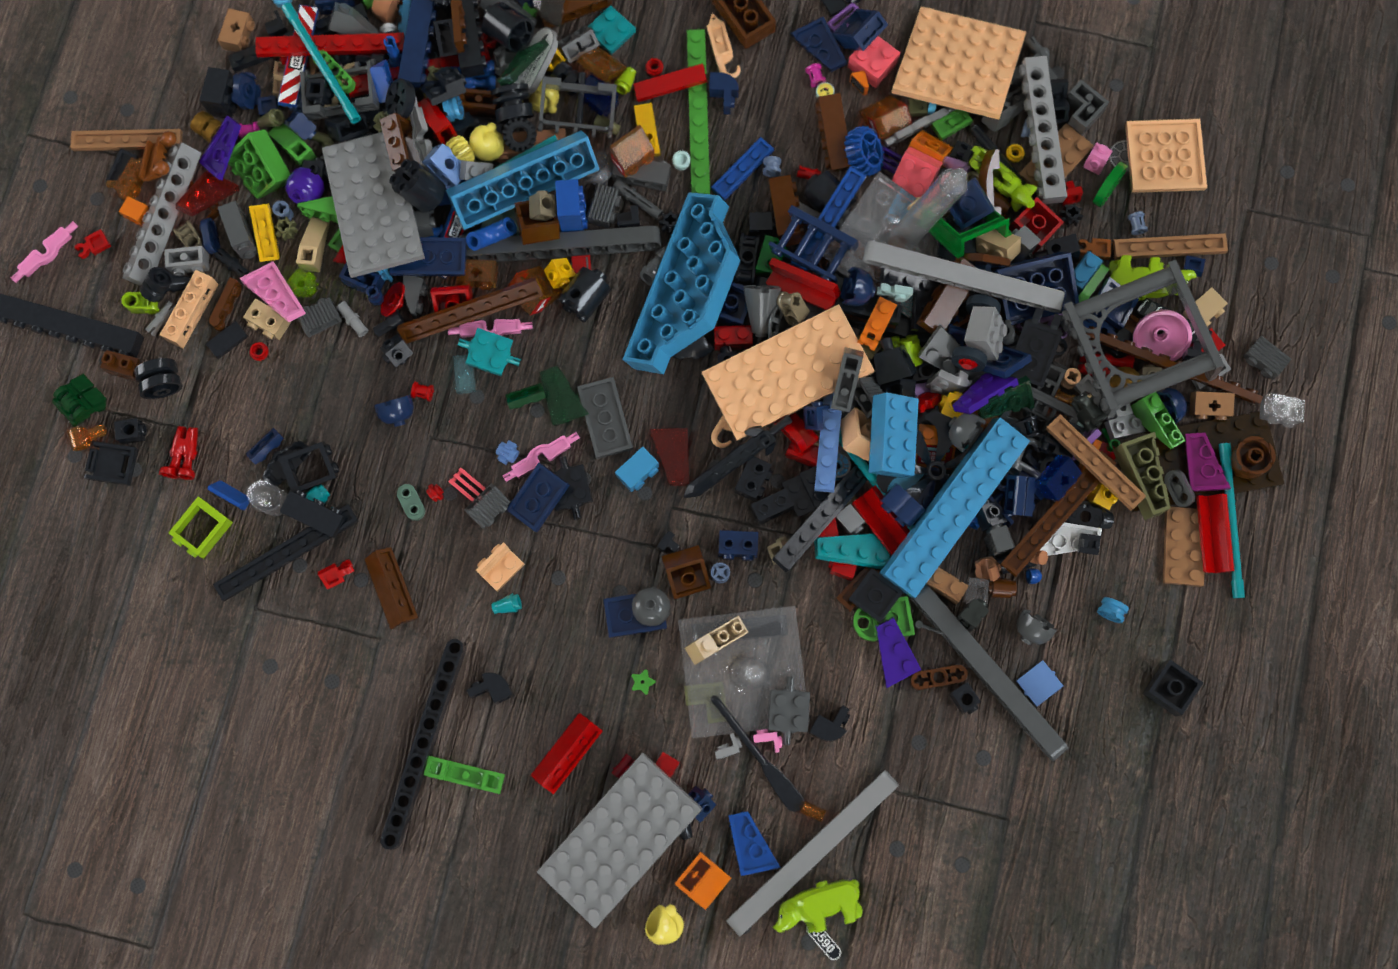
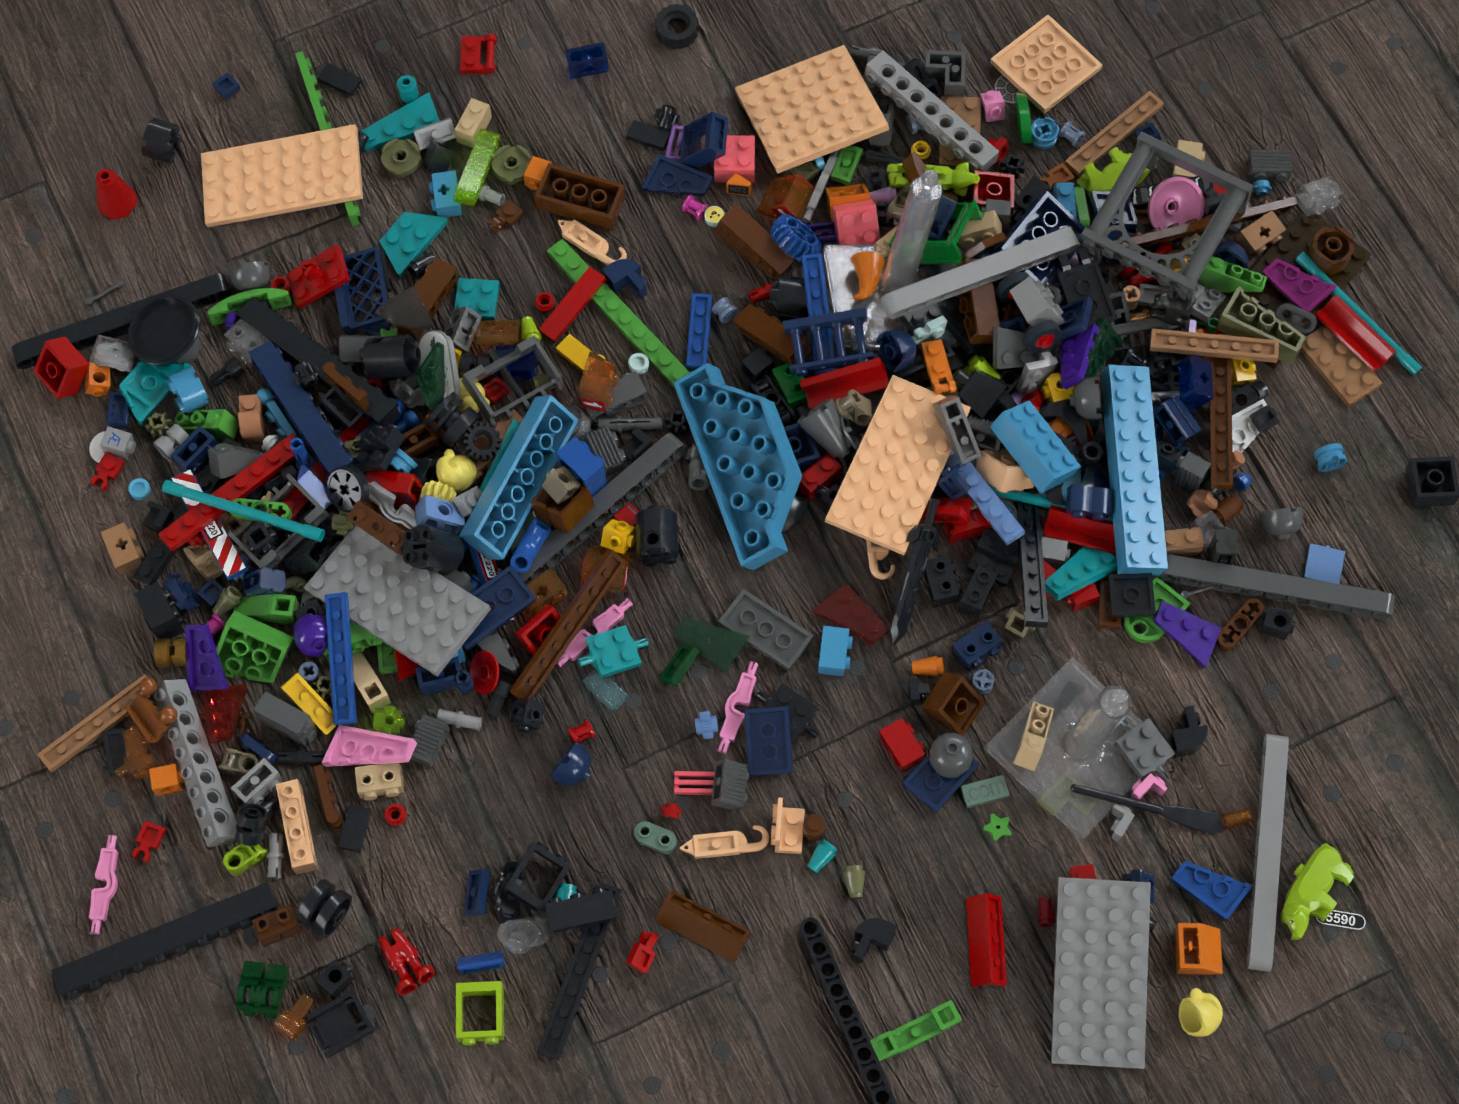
camera: 40 degrees left, 10 degrees down
(304, 216) = (340, 658): none -> blue tile
(449, 543) = (724, 844): none -> light nougat plate
(514, 639) = (854, 880): none -> olive cone
(516, 581) = (814, 827): none -> reddish brown brick
(567, 105) = (495, 390): none -> red tile
(626, 572) = (902, 745): none -> red brick
(655, 650) = (984, 791): none -> sand green tile
(693, 532) = (929, 666): none -> orange cone
(888, 216) = (869, 269): none -> orange hat
(1117, 214) = (1046, 140): none -> dark azure wheel
(1245, 370) = (1261, 188): none -> dark azure plate

